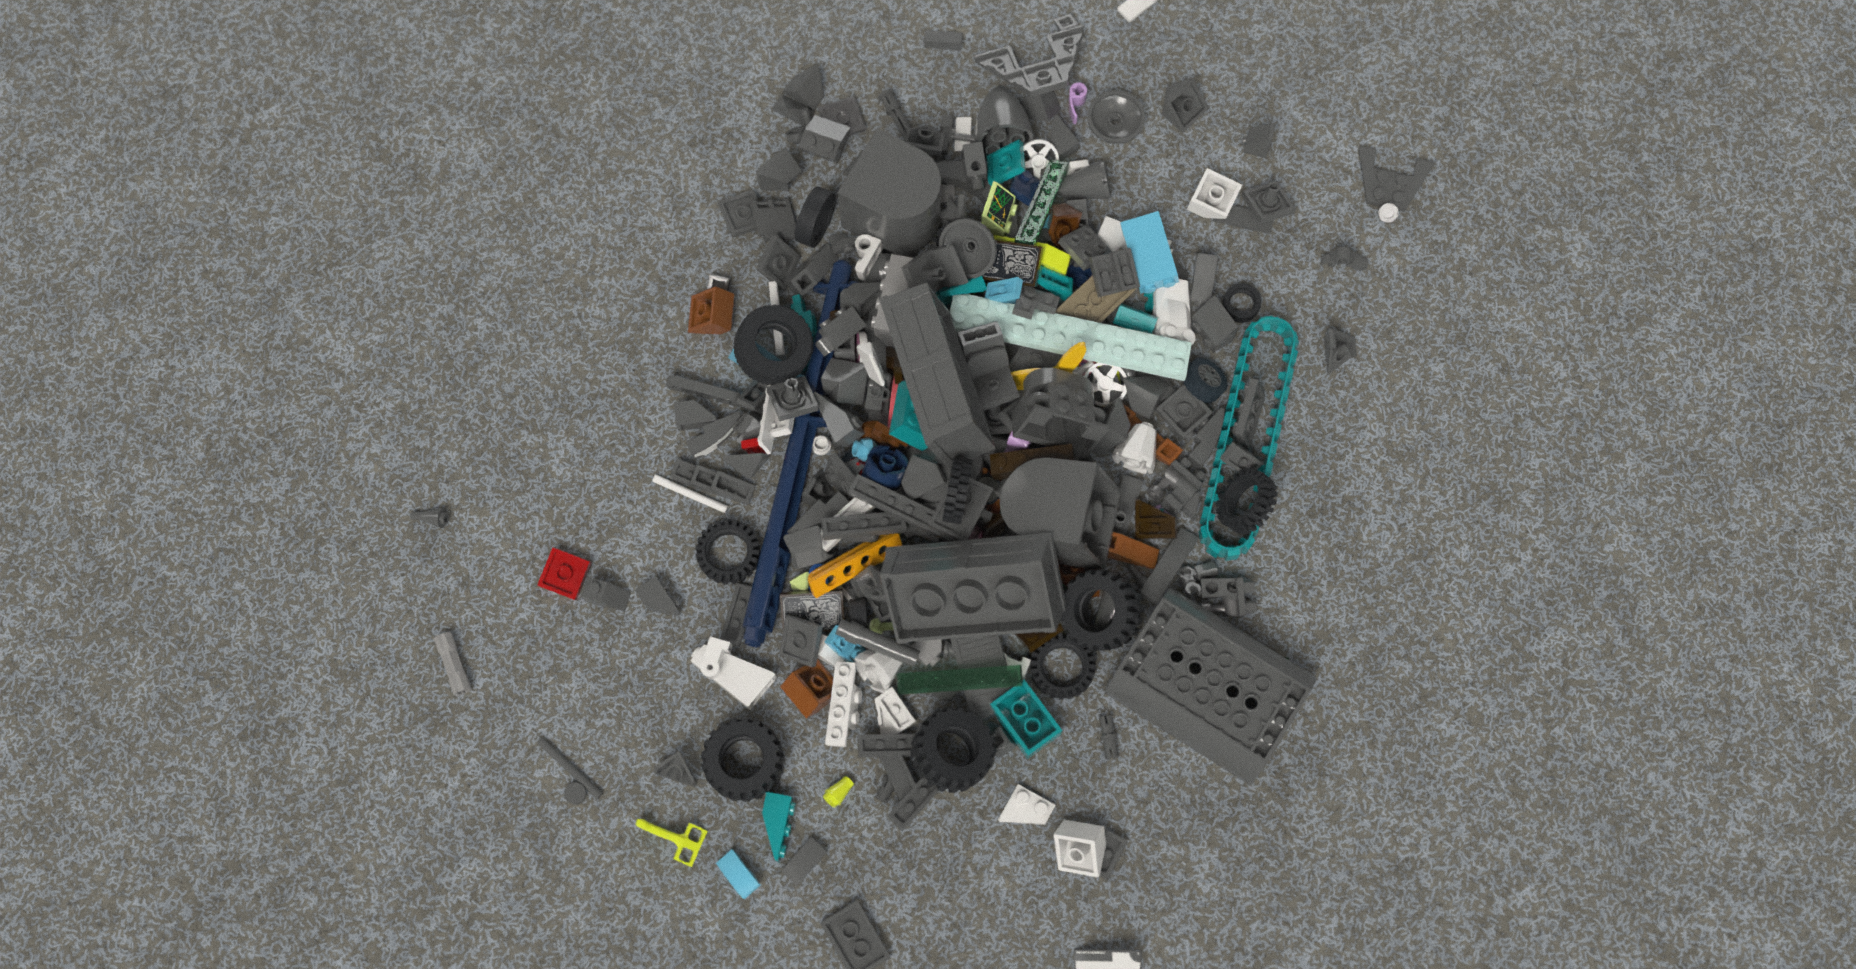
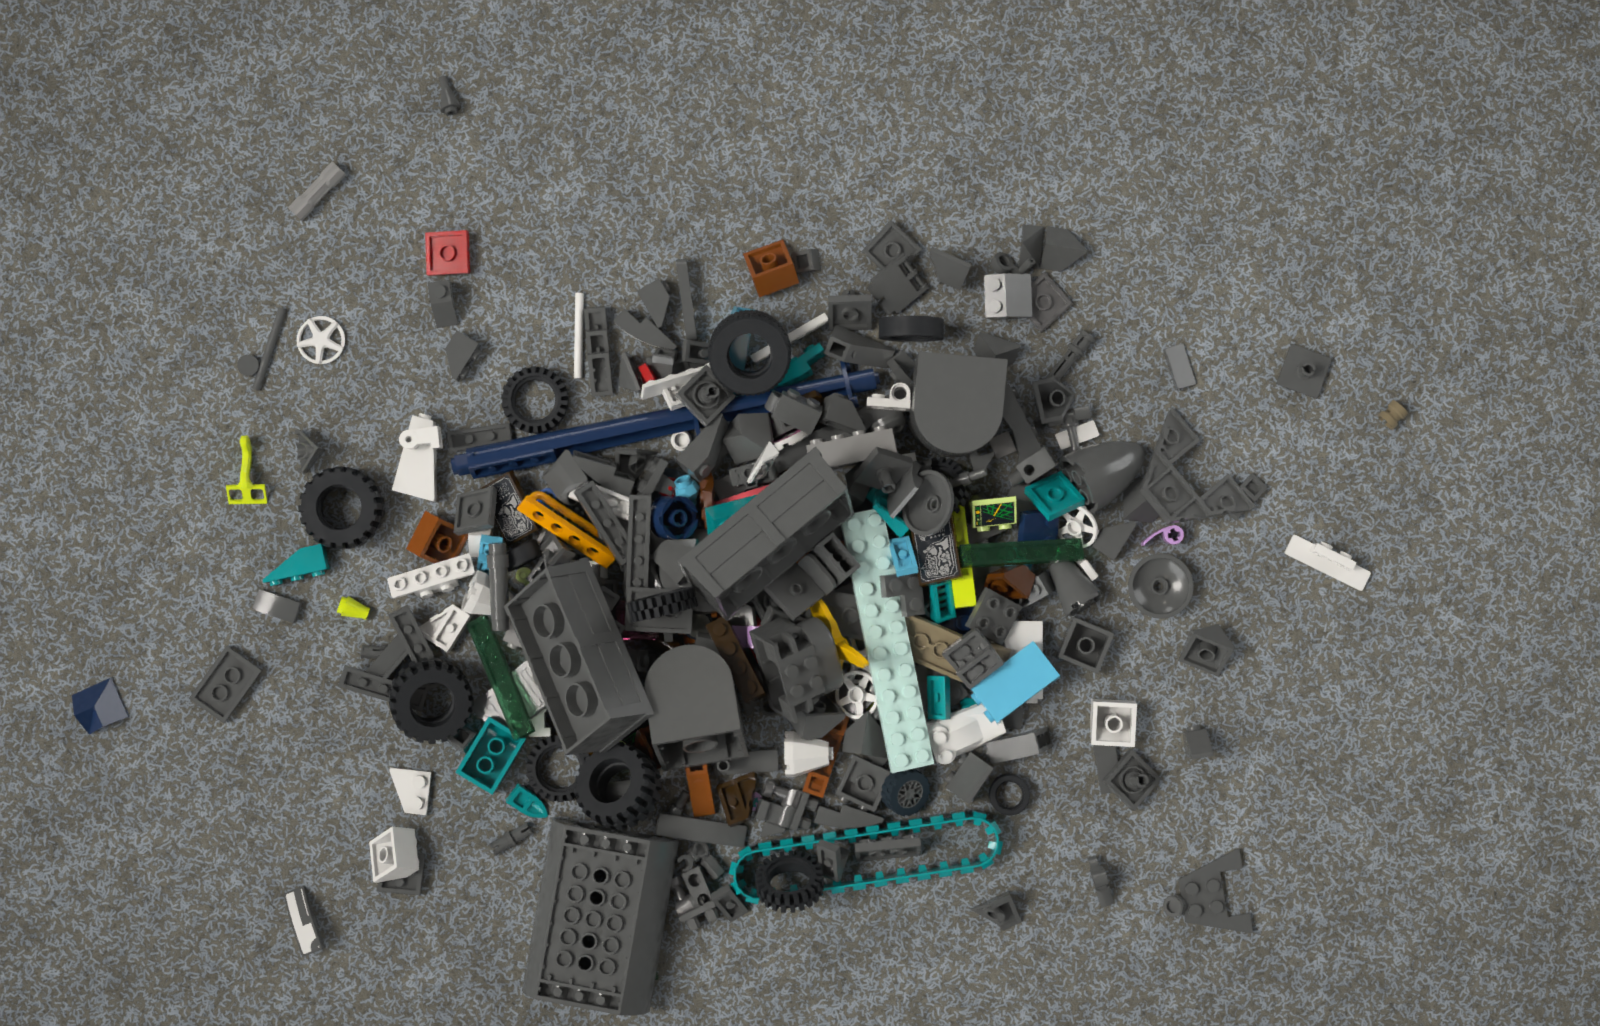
camera: 70 degrees right, 15 degrees up
(584, 717) = (320, 339): none -> white wheel
(738, 874) = (237, 551): medium azure slope -> none
(800, 582) = (533, 483): yellowish green slope -> none
(1081, 709) = (526, 802): none -> teal plate
(1140, 192) = (1084, 645): none -> dark grey brick
(1243, 567) = (729, 903): none -> dark grey slope

